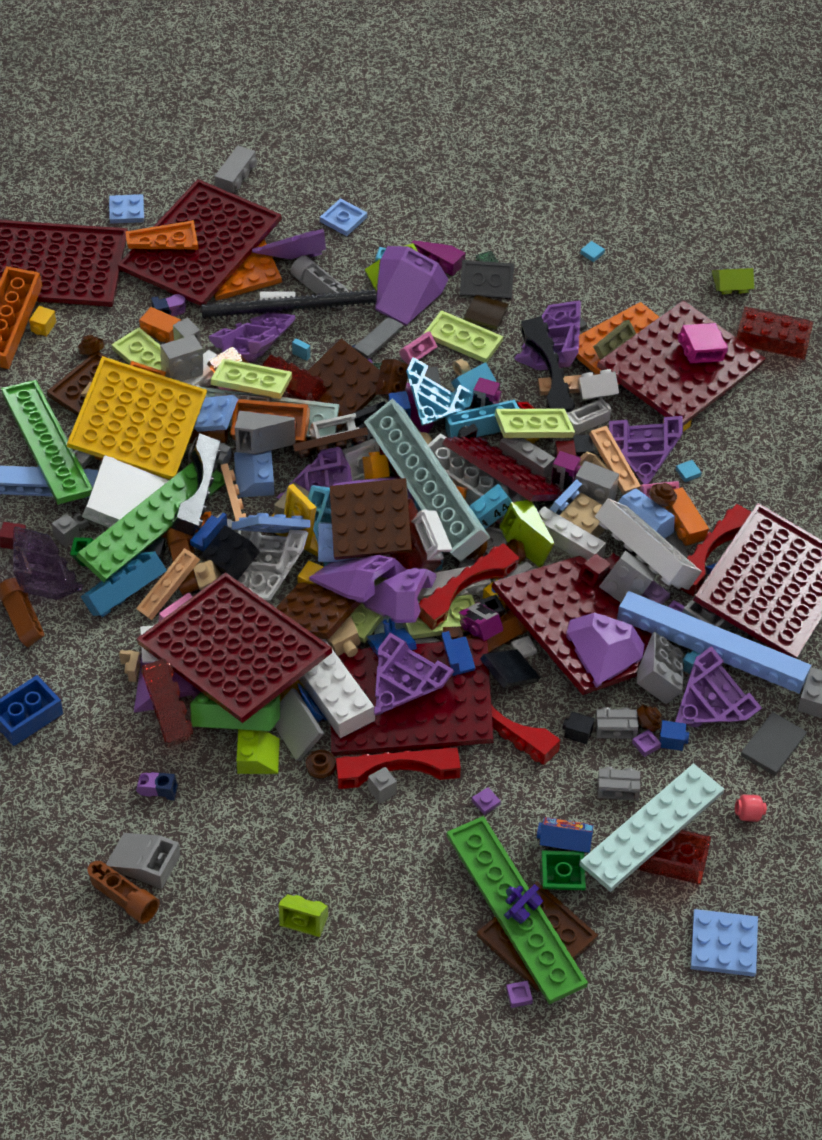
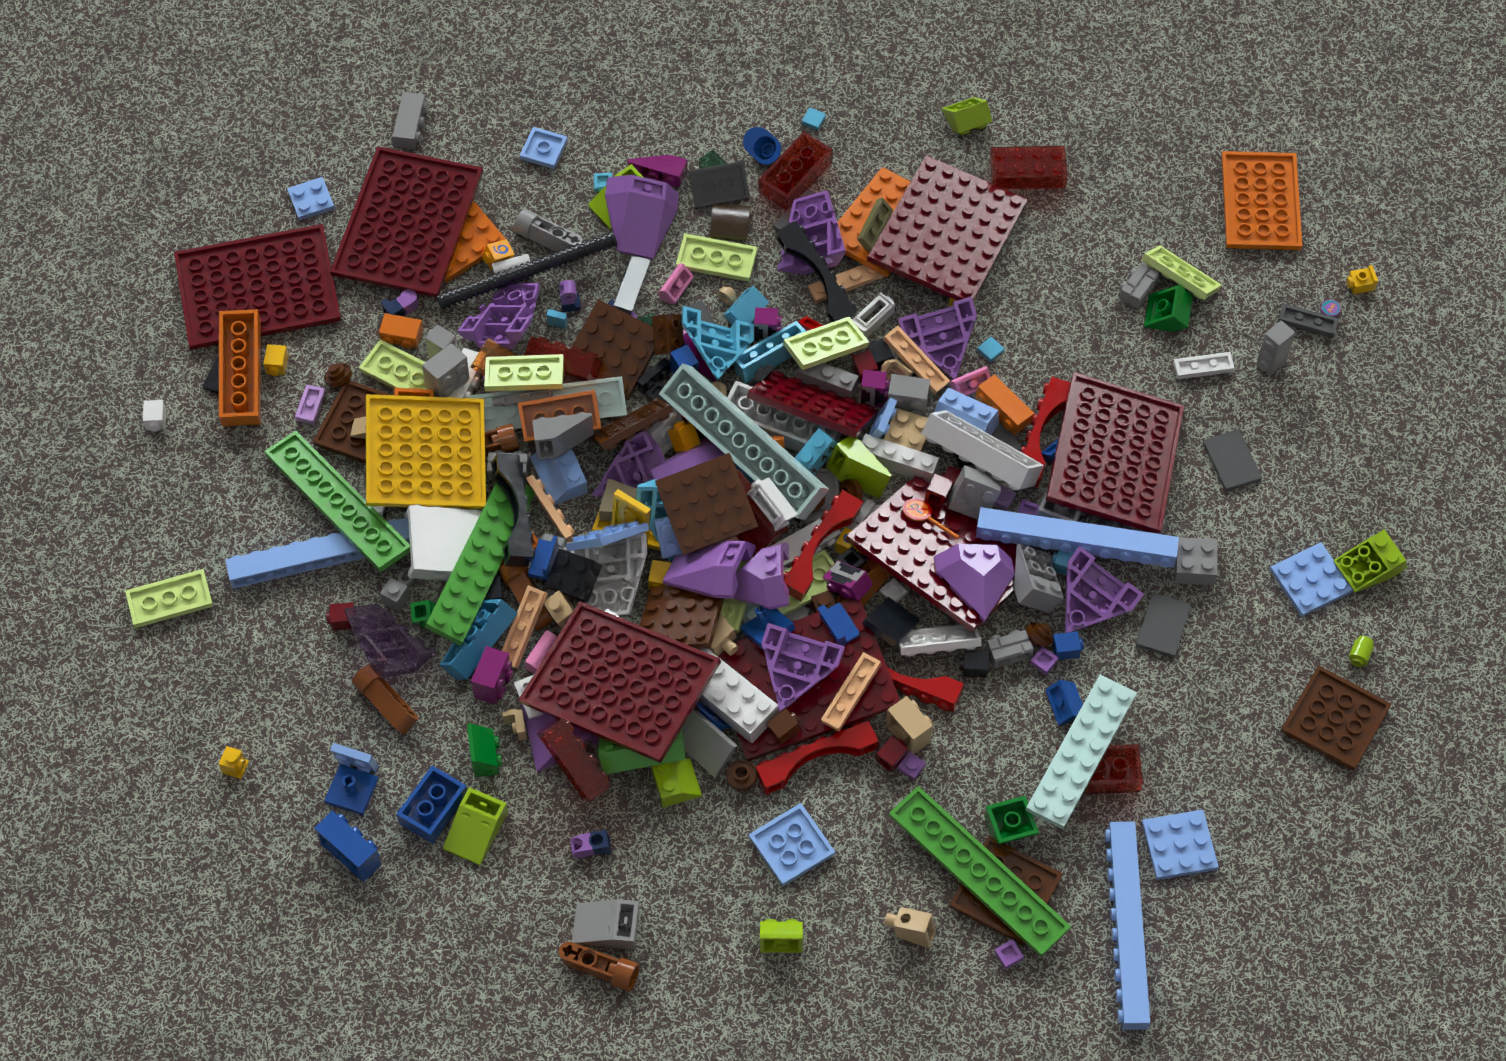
camera: 15 degrees left, 10 degrees up
(57, 363) = (310, 404): none -> lavender plate
(57, 739) = (475, 826): none -> lime slope
(90, 677) = (483, 750): none -> green slope
(123, 616) = (492, 675): none -> magenta brick
(169, 236) = (370, 227): orange wing -> none
(215, 413) = (503, 423): light blue plate -> none
(269, 283) = (497, 252): none -> light orange brick
(308, 243) = (511, 196): medium lavender wedge -> none
(317, 335) = (569, 297): none -> medium lavender leg
(345, 837) = (791, 844): none -> light blue plate
(348, 419) = (641, 396): white window -> none
(374, 729) = (784, 726): none -> reddish brown brick
(382, 785) = (808, 780): light grey brick -> none
(434, 941) = (912, 926): none -> tan torso
(448, 715) = (851, 691): none -> light nougat plate
(469, 784) = (892, 754): none -> dark red brick
(495, 761) = (909, 724): none -> tan brick
(517, 911) = (984, 863): dark purple hips -> none
(537, 258) = (762, 145): none -> blue piece
(553, 696) = (939, 639): none -> white plate
(559, 284) = (795, 170): none -> clear red brick
(565, 834) = (1001, 781): blue brick -> none
(572, 581) = (920, 510): none -> piece
(598, 385) = (874, 283): white brick -> none
(618, 784) = (1032, 711): light grey brick -> none
(646, 1003) = (1128, 926): none -> light blue brick
(652, 781) = (1064, 701): none -> blue panel
(663, 494) = (980, 390): reddish brown plate -> none
(702, 343) = (964, 205): brick -> none
(750, 808) = (1162, 700): coral head -> none

